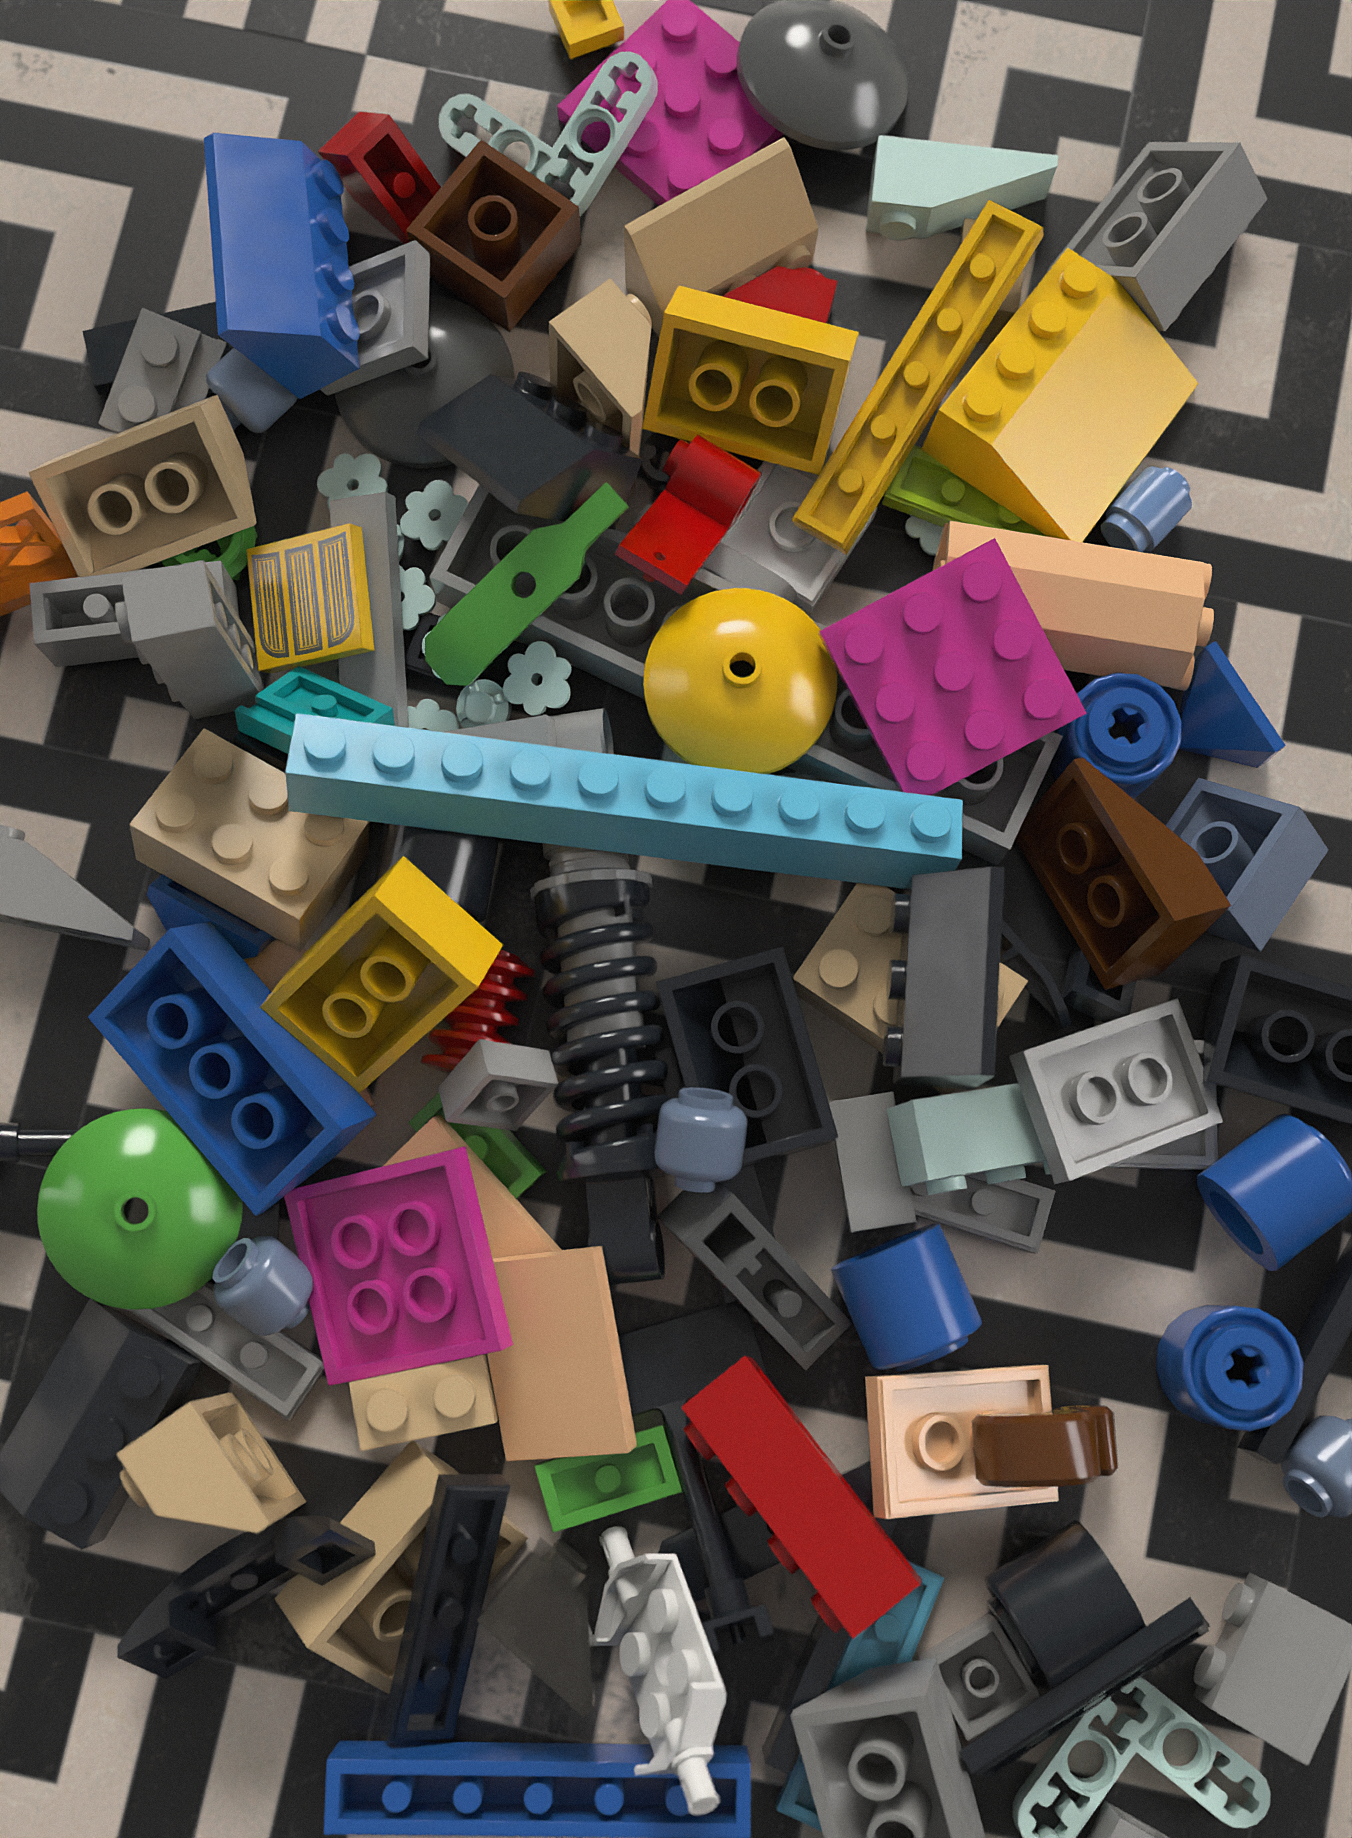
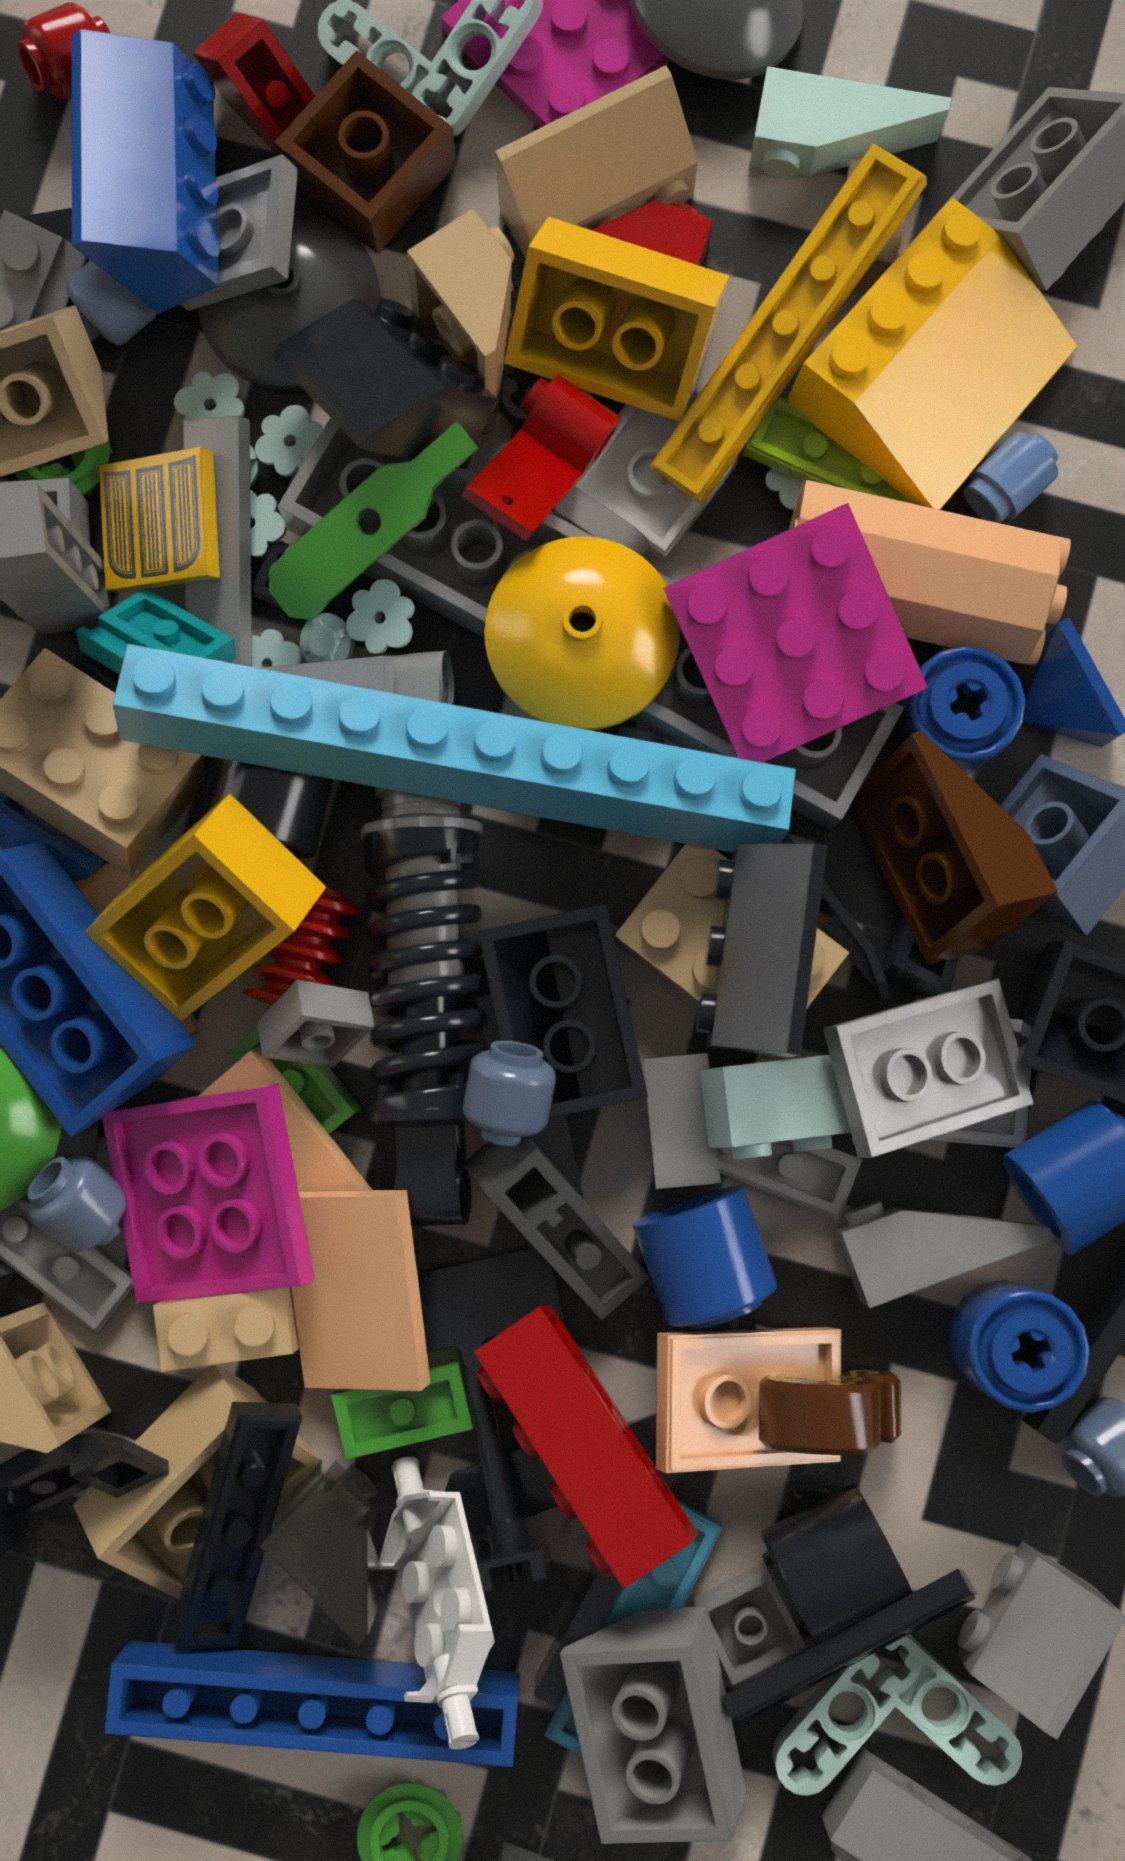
camera: 10 degrees right, 5 degrees up
(179, 154) = (48, 46): none -> red head
(1112, 1277) = (912, 1249): none -> light grey slope

